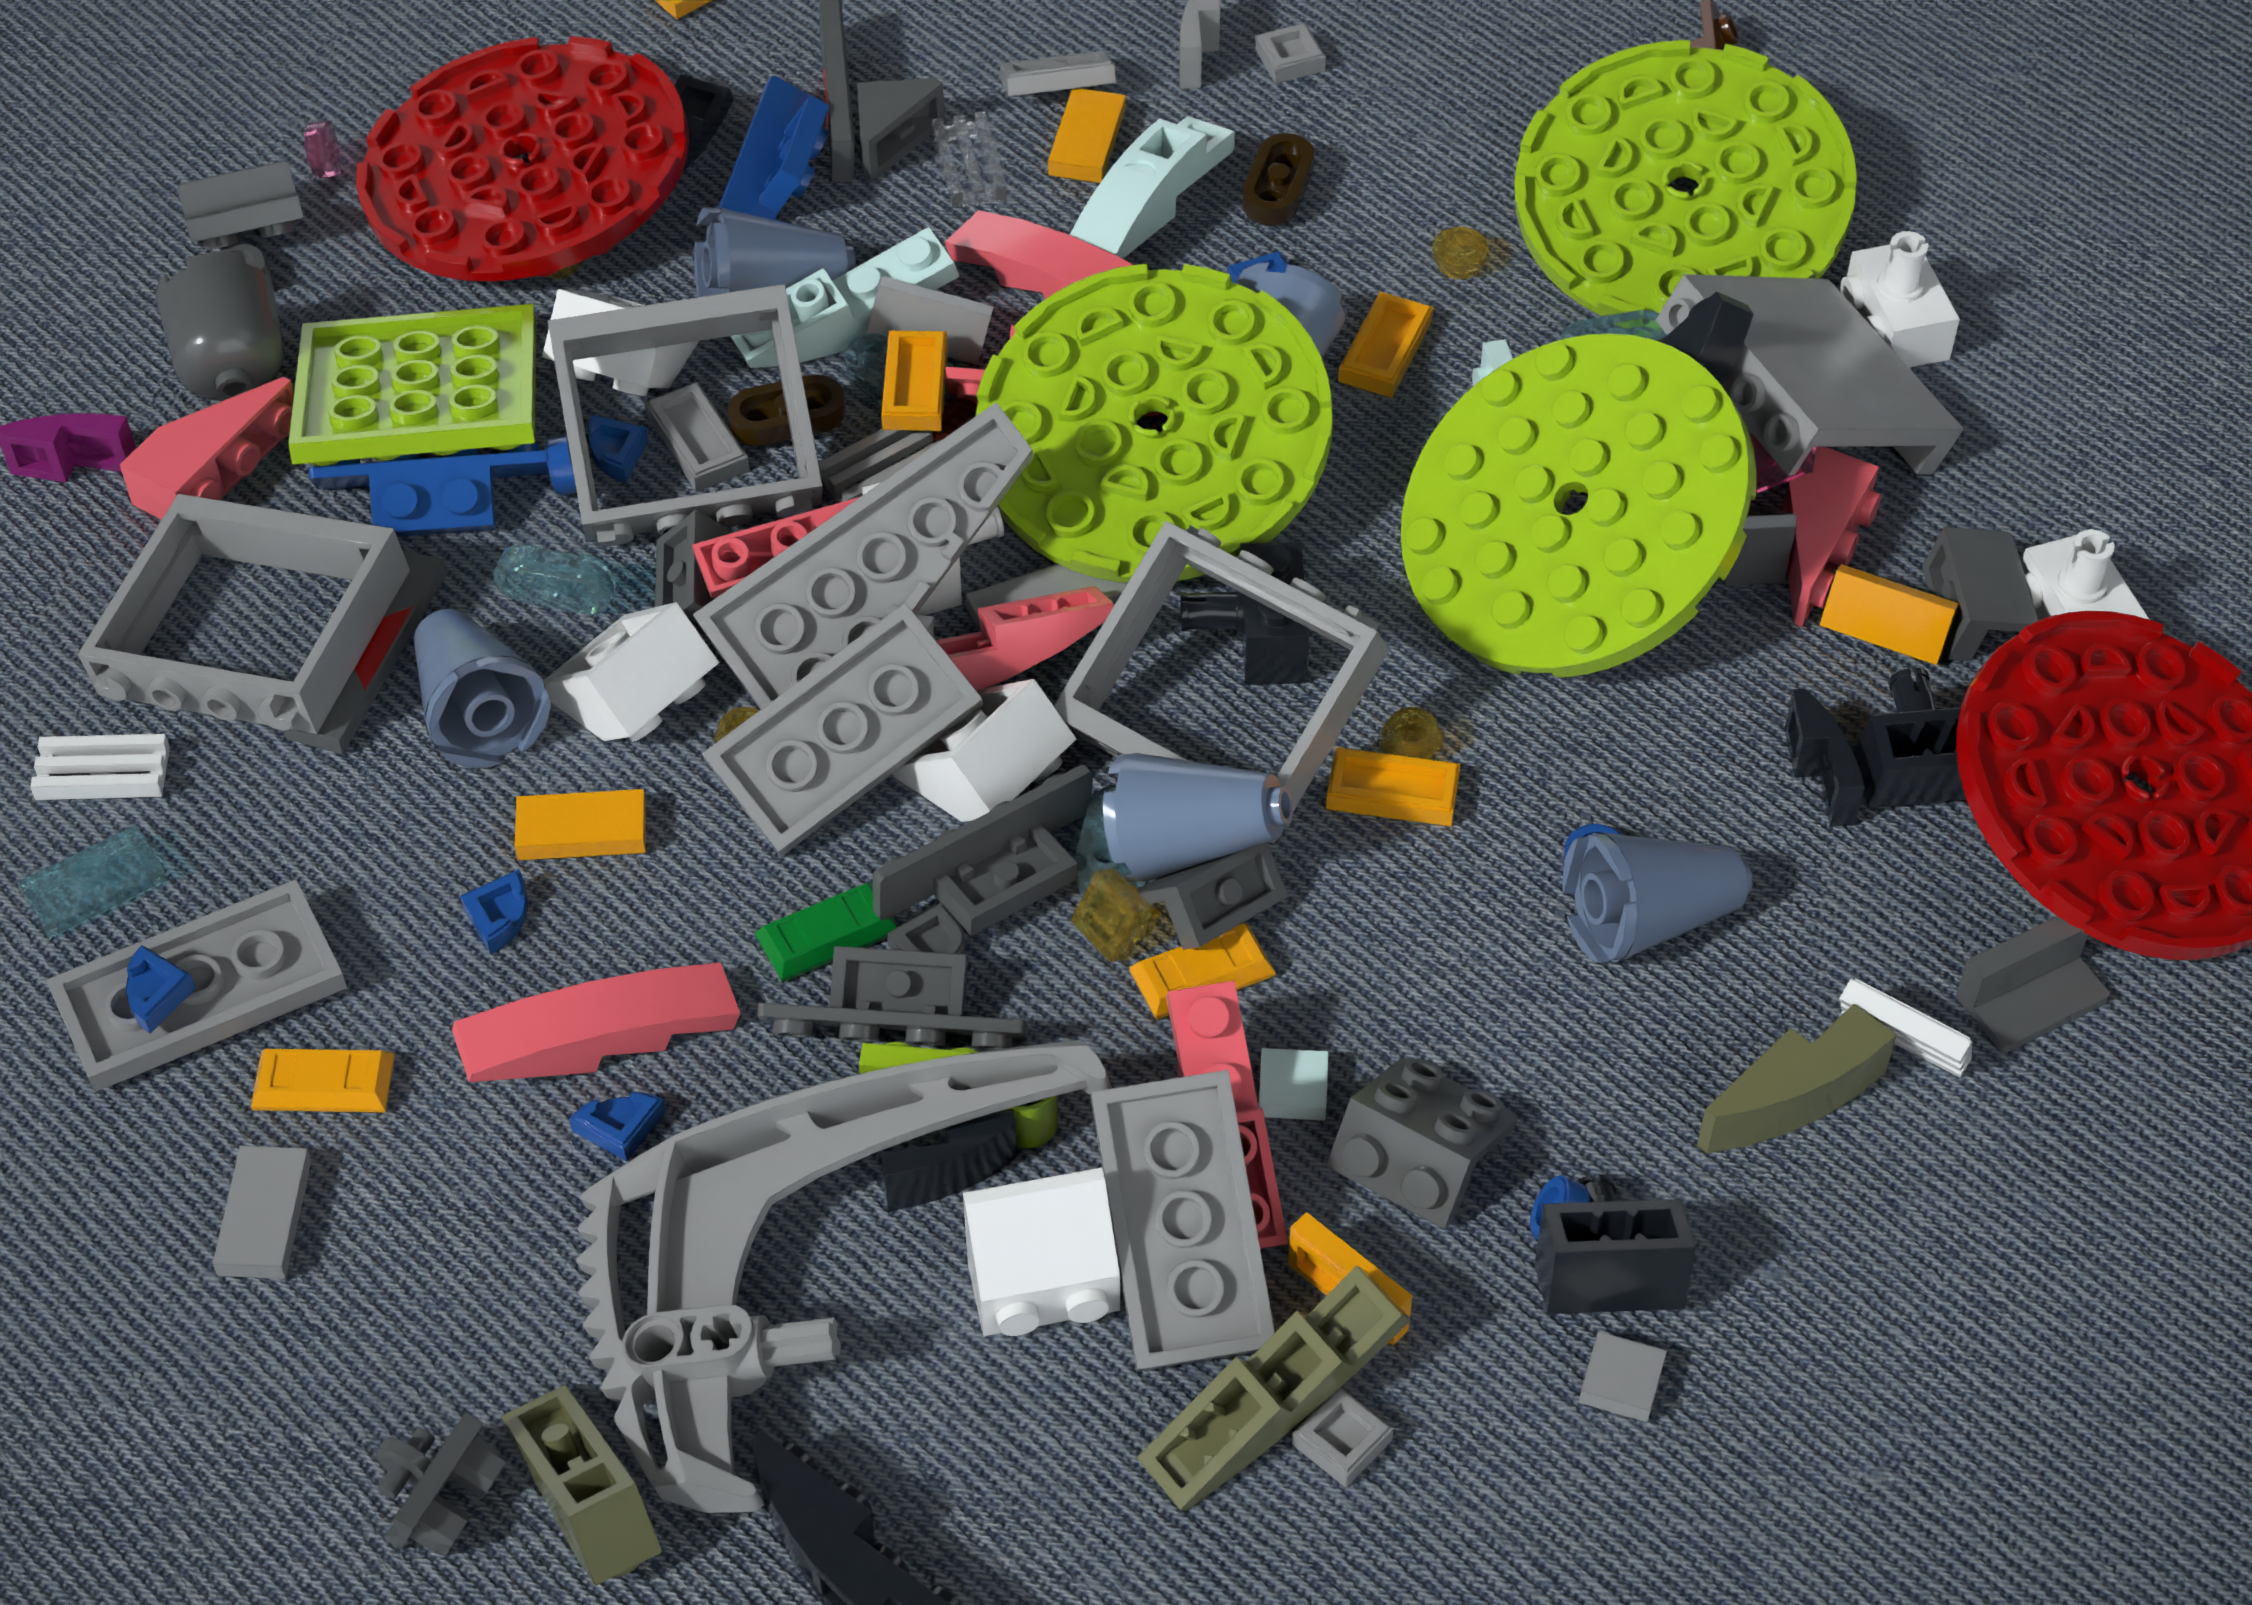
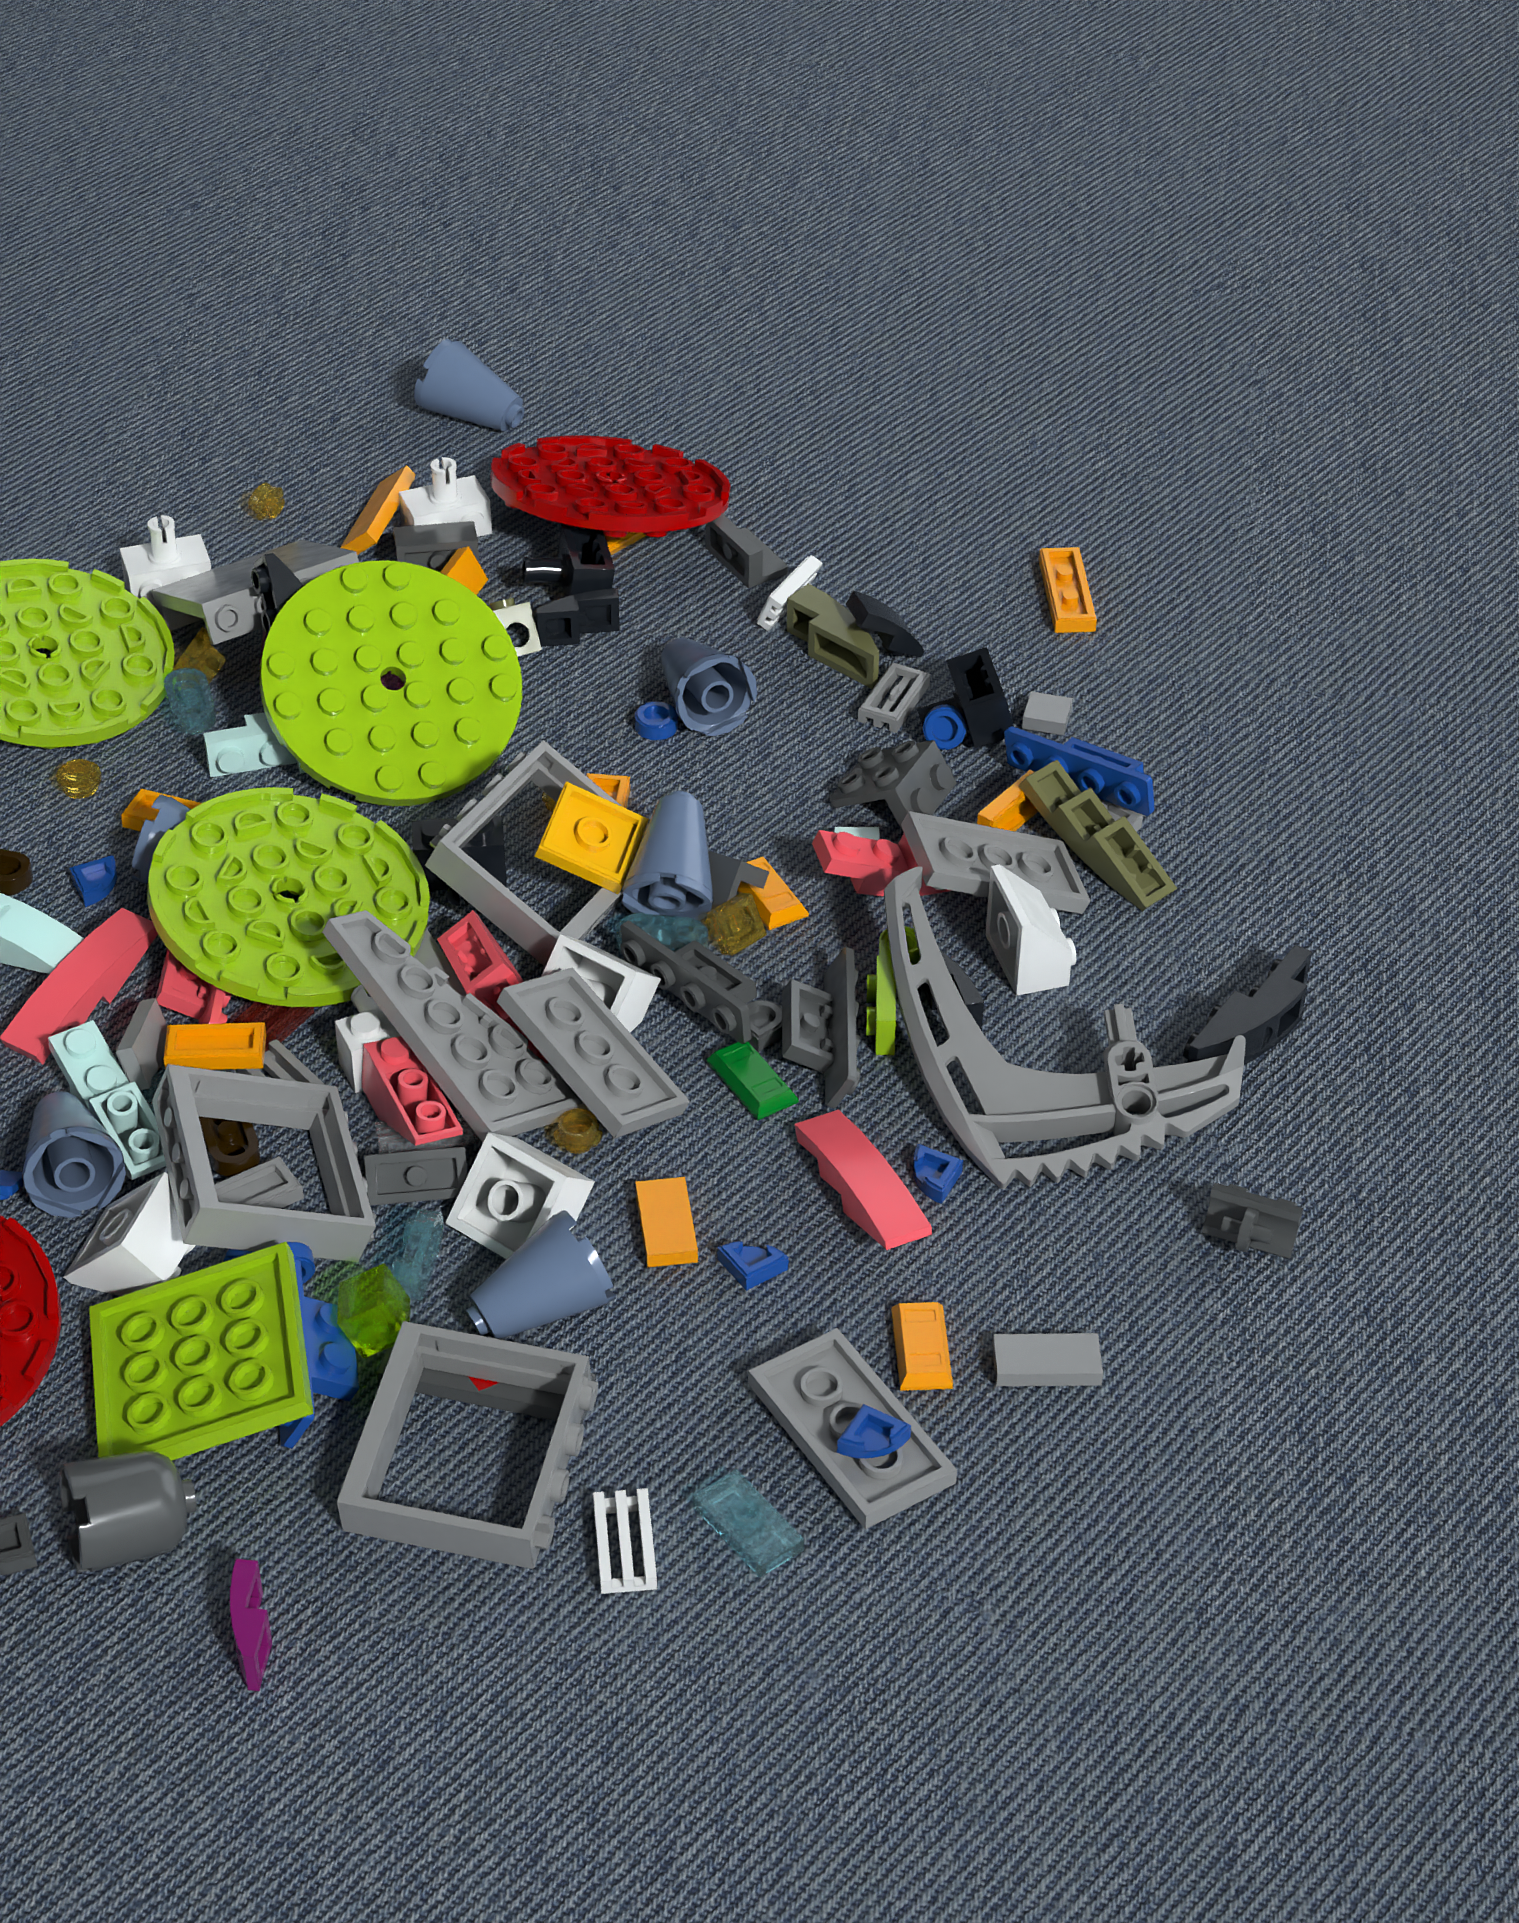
camera: 95 degrees left, 10 degrees down
(209, 448) = (272, 1519): coral slope -> none
(457, 529) = (372, 1309): none -> clear neon green brick
(583, 1485) = (1234, 1145): olive slope -> none
(1229, 709) = (591, 837): none -> yellow tile
(1442, 1399) = (1109, 774): none -> blue bracket
(1657, 1173) = (885, 714): none -> light grey tile
(1800, 1137) = (880, 619): none -> black slope
(1811, 668) = (522, 613): none -> bracket
(1978, 1452) = (1067, 590): none -> light orange tile
(2061, 524) = (378, 511): none -> light orange tile
(2093, 407) = (267, 501): none -> clear yellow plate

